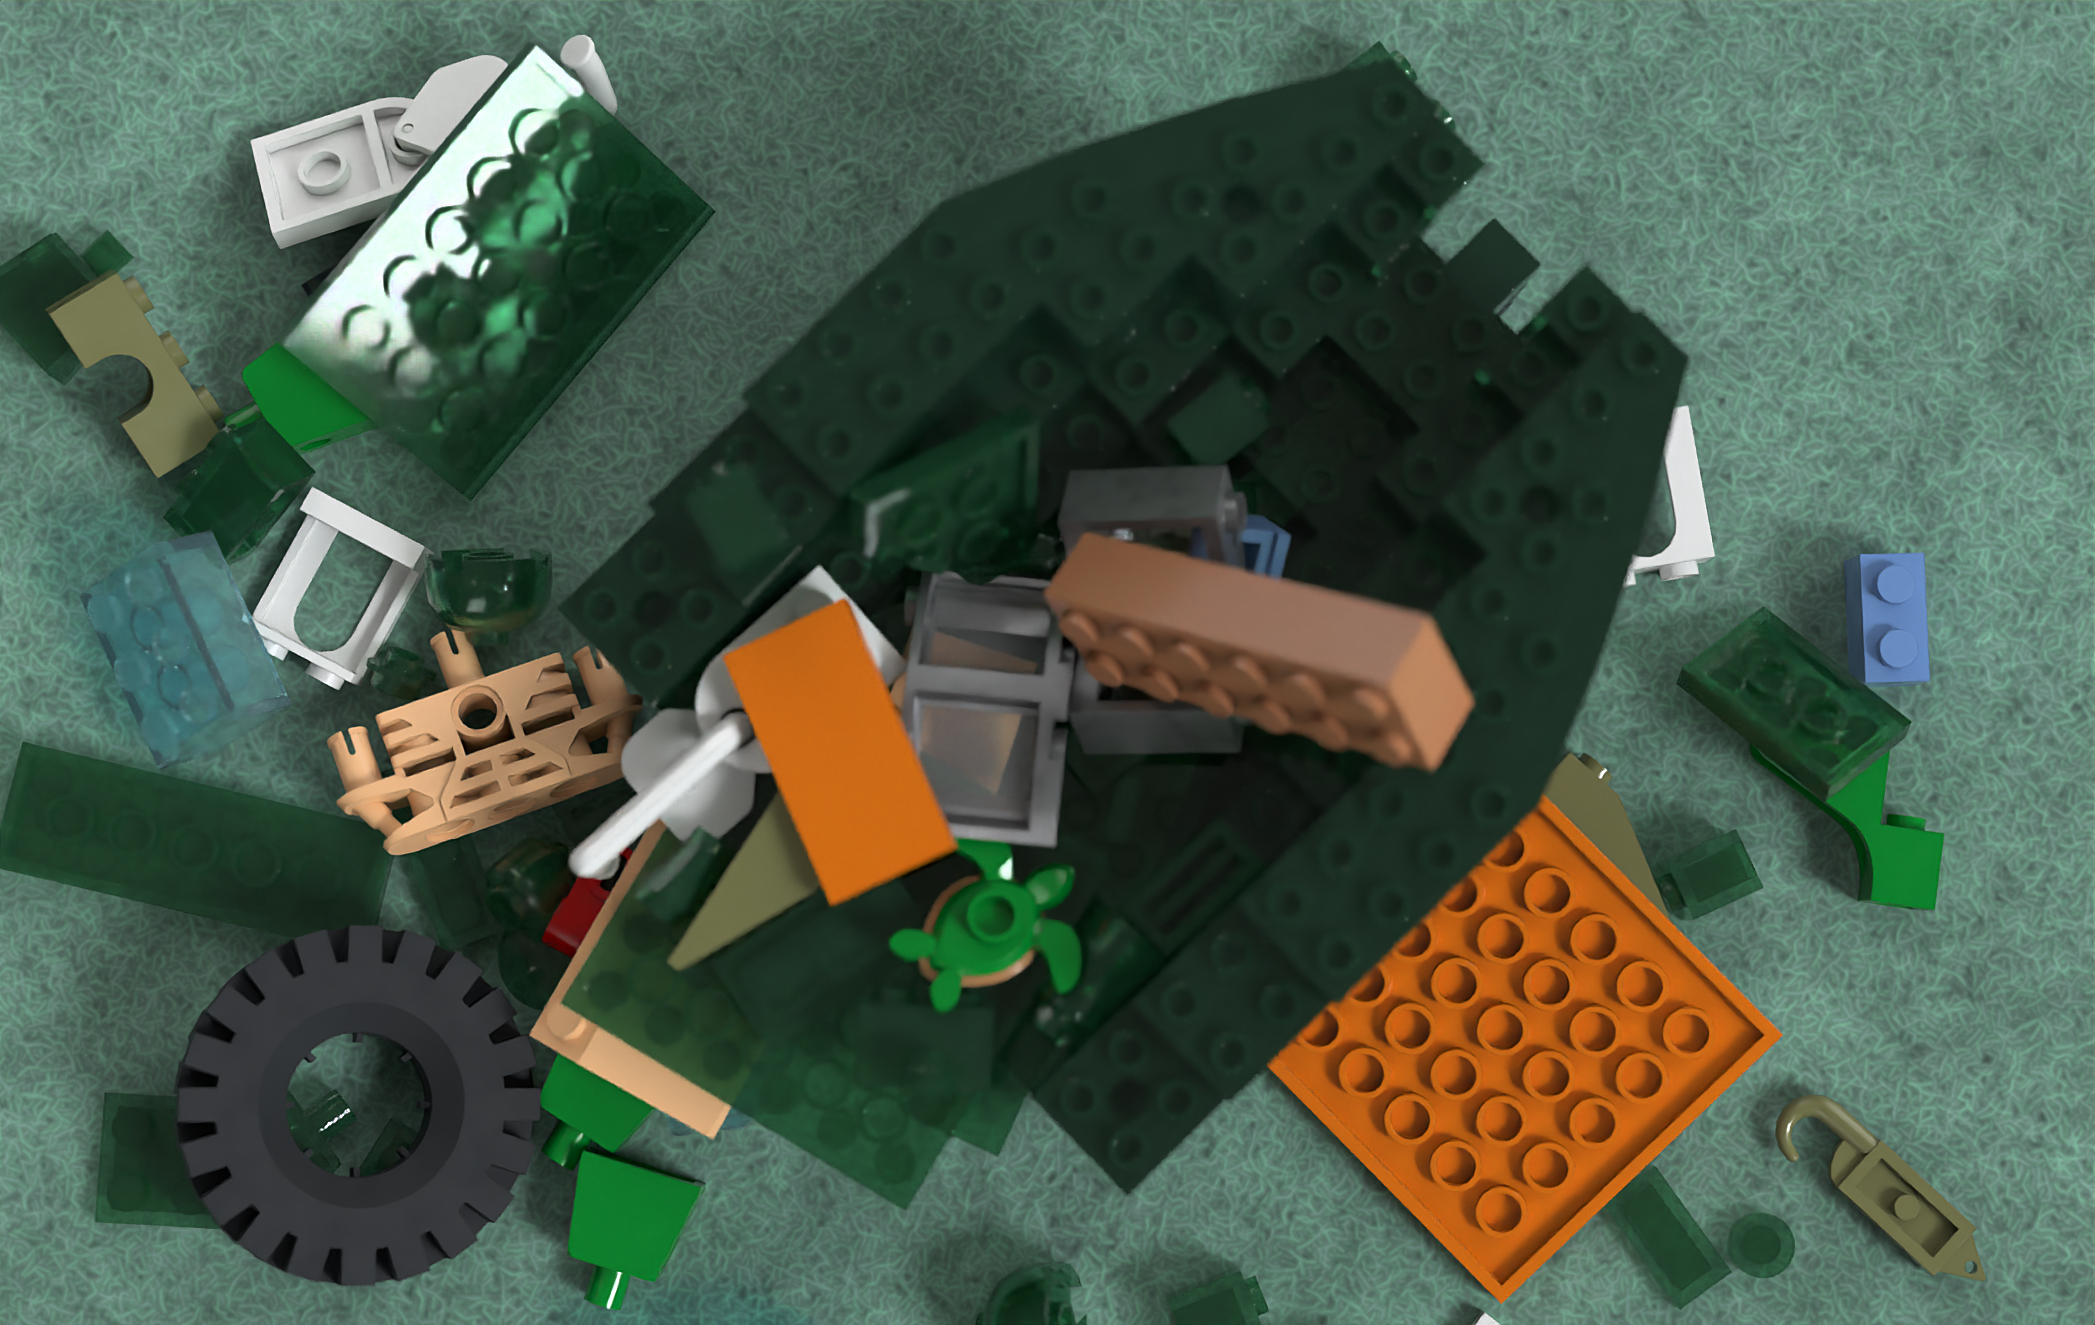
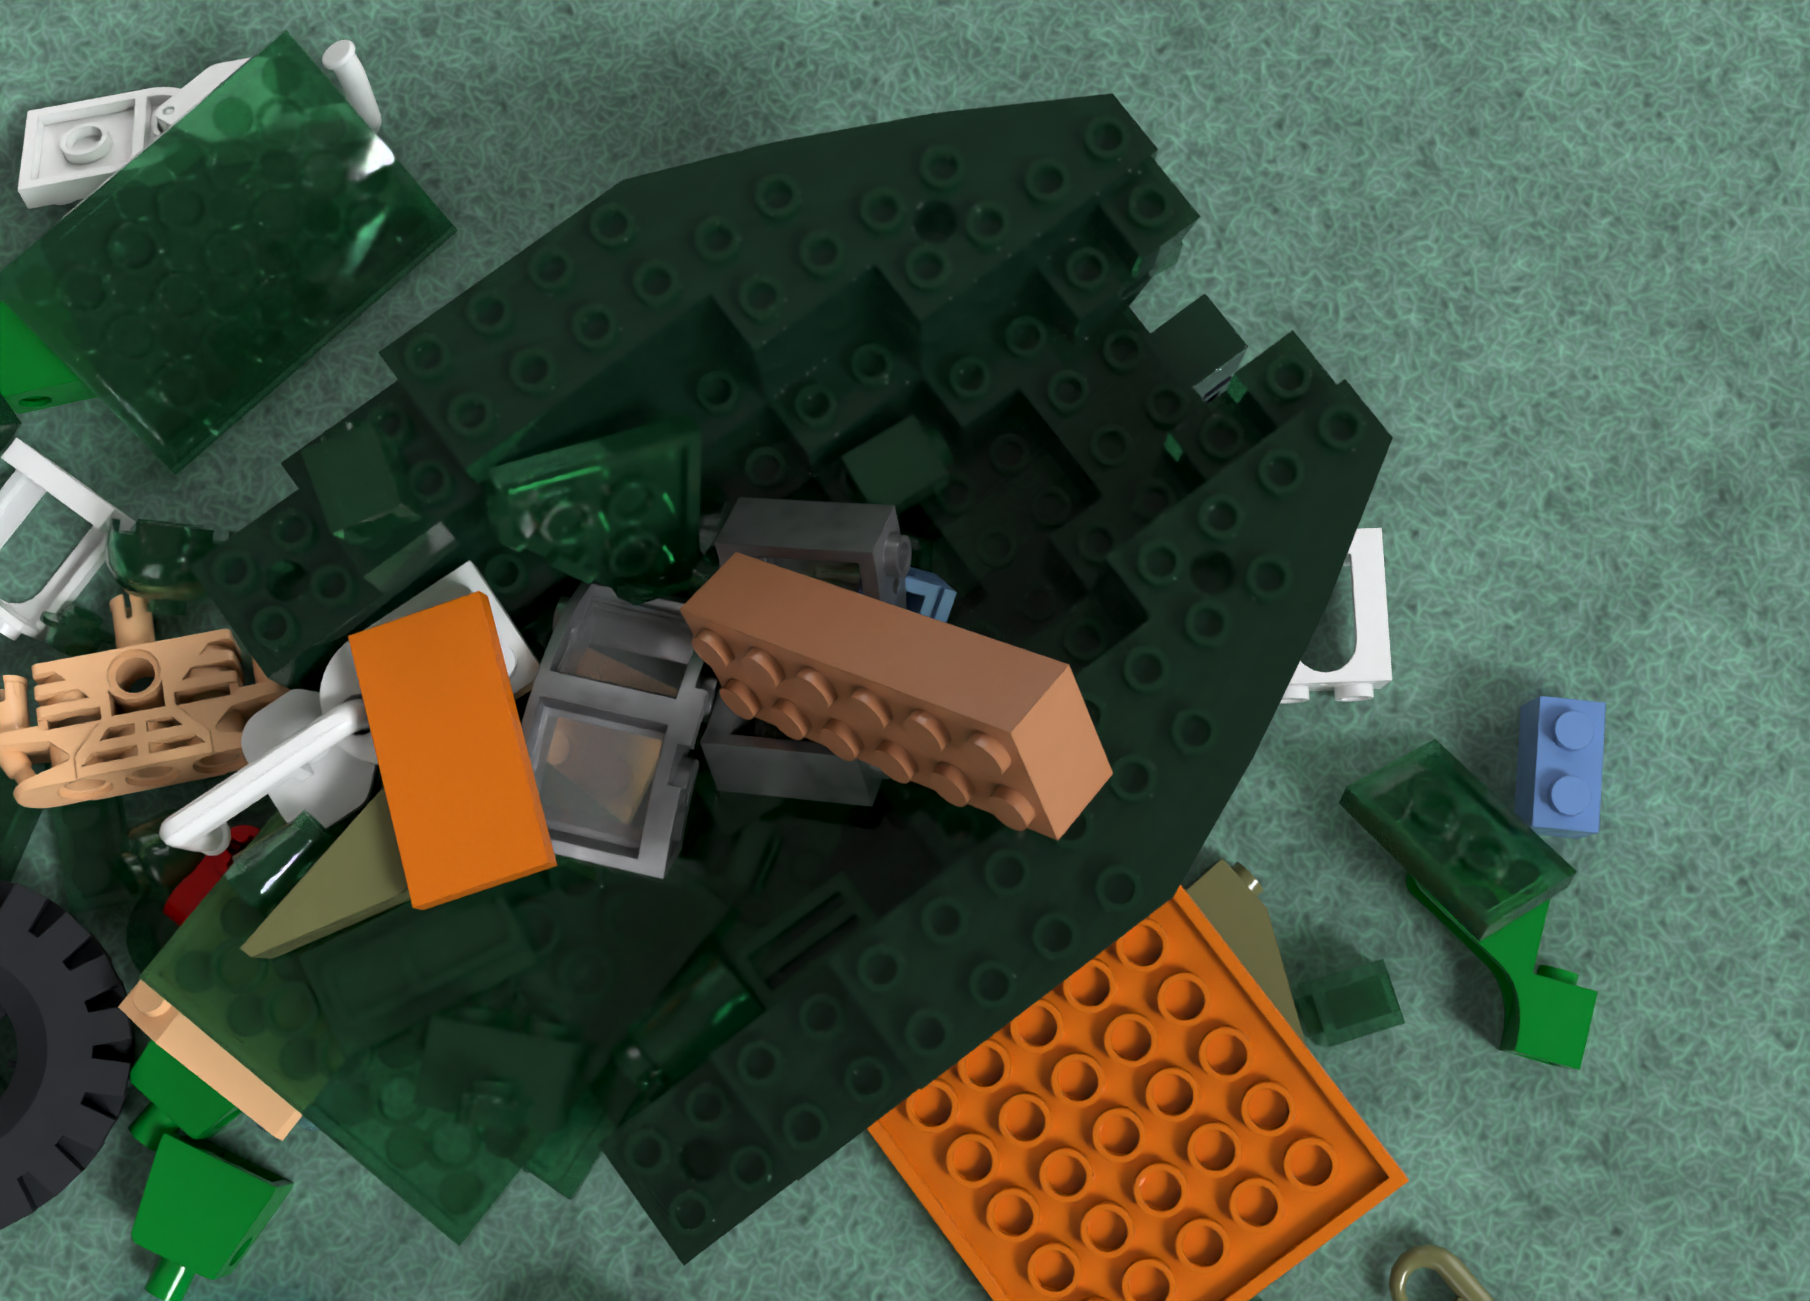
camera: 15 degrees right, 5 degrees down
(992, 927) = (588, 955): green animal -> none

